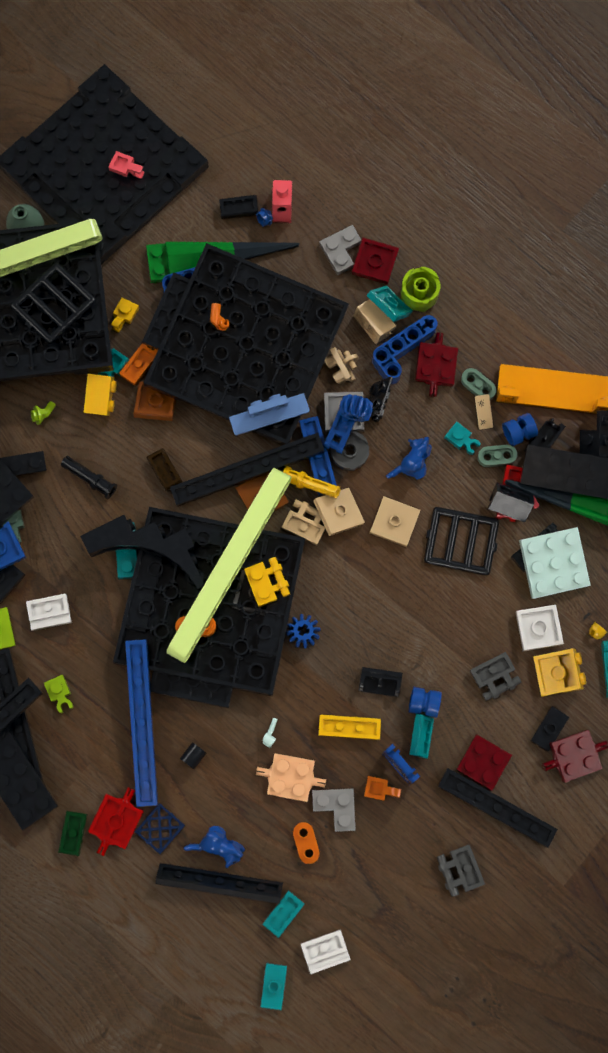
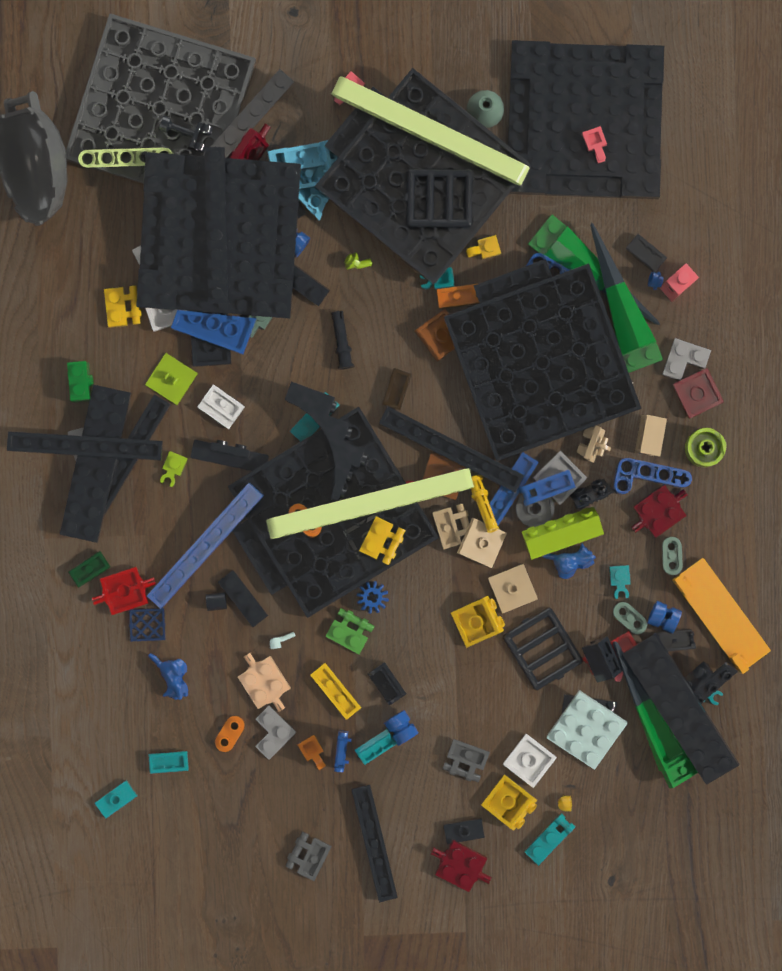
camera: 45 degrees right, 10 degrees up
(89, 640) = (228, 455): none -> black bracket
(99, 394) = (407, 291): yellow brick -> none
(210, 733) = (243, 598): none -> black plate
(216, 319) = (538, 326): orange arm -> none
(219, 883) = (148, 700): black plate -> none
(268, 413) = (500, 426): medium blue bracket -> none
(277, 259) = (630, 328): none -> green plate
(316, 679) = (346, 636): none -> bright green plate
(325, 951) = (170, 813): white plate -> none
(355, 408) = (565, 487): blue gear -> none
(387, 445) = (562, 532): none -> lime brick
(389, 303) = (672, 436): teal plate -> none
(396, 568) = (478, 621): none -> yellow plate
(484, 411) = (654, 578): tan sticker -> none
(484, 762) = (397, 806): dark red plate -> none

